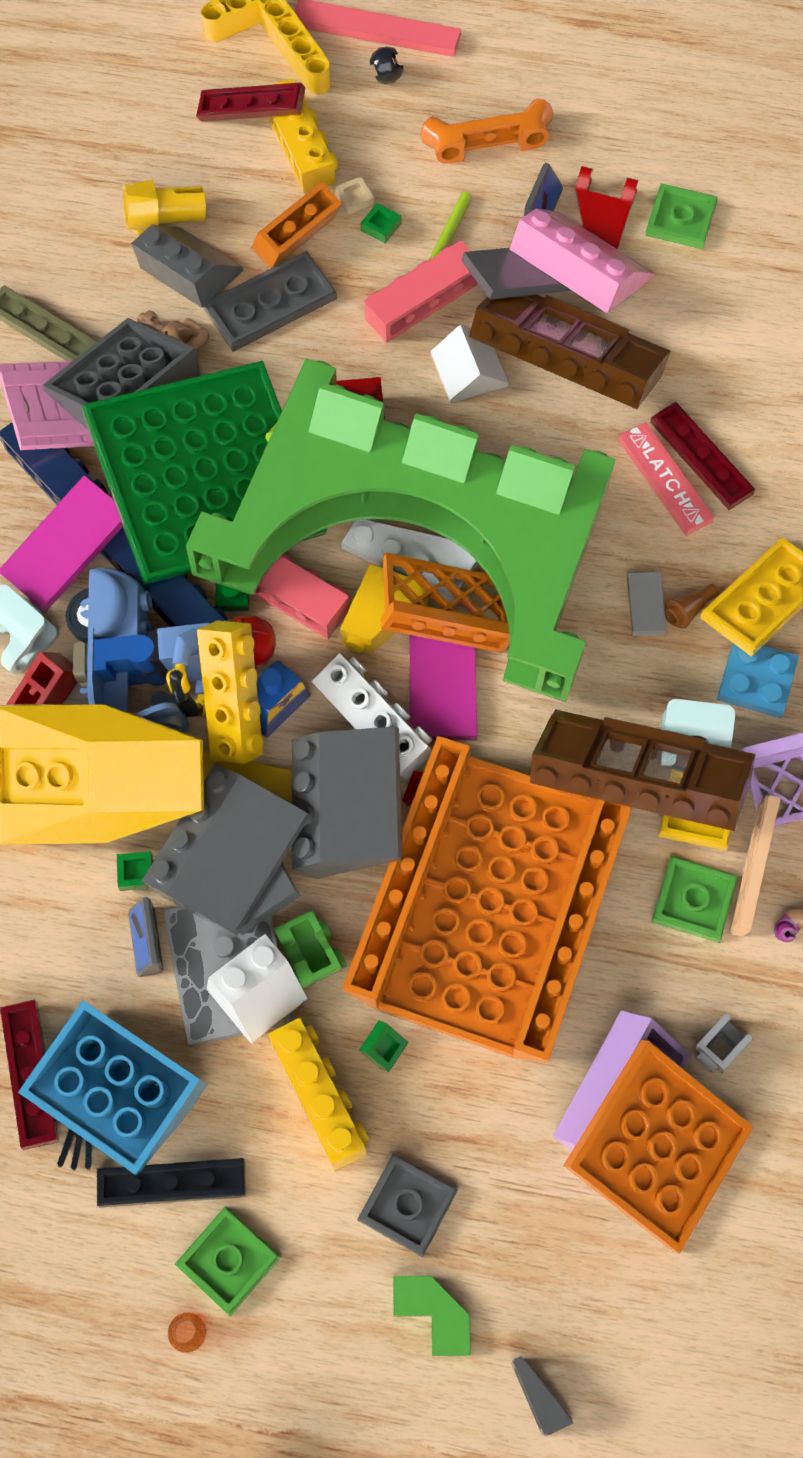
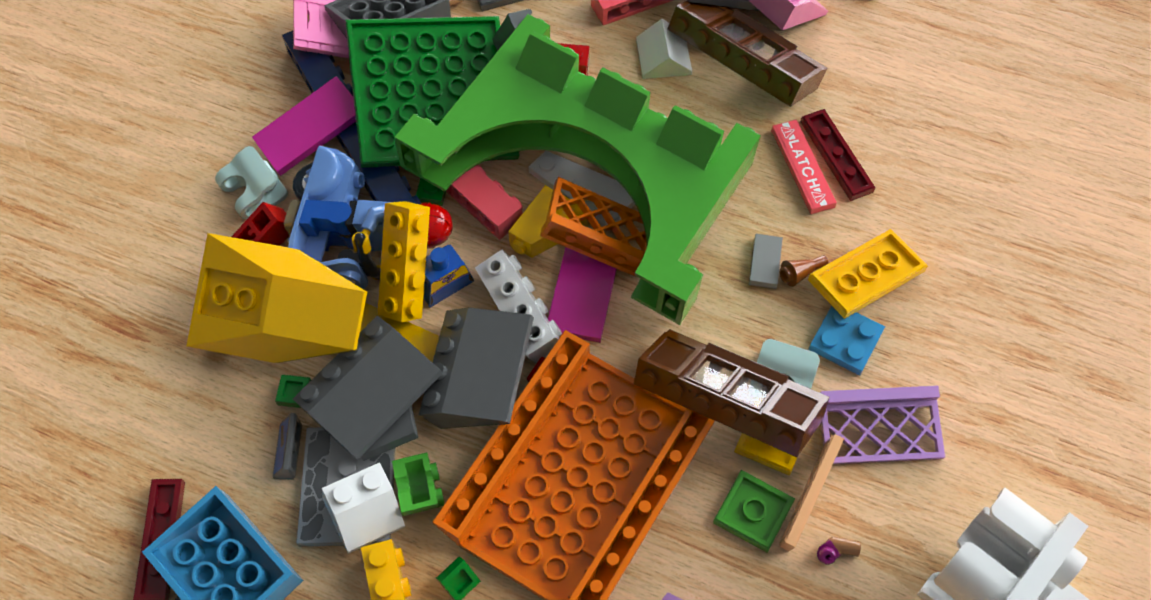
camera: 10 degrees right, 5 degrees down
(284, 379) = (508, 26): none -> dark grey slope

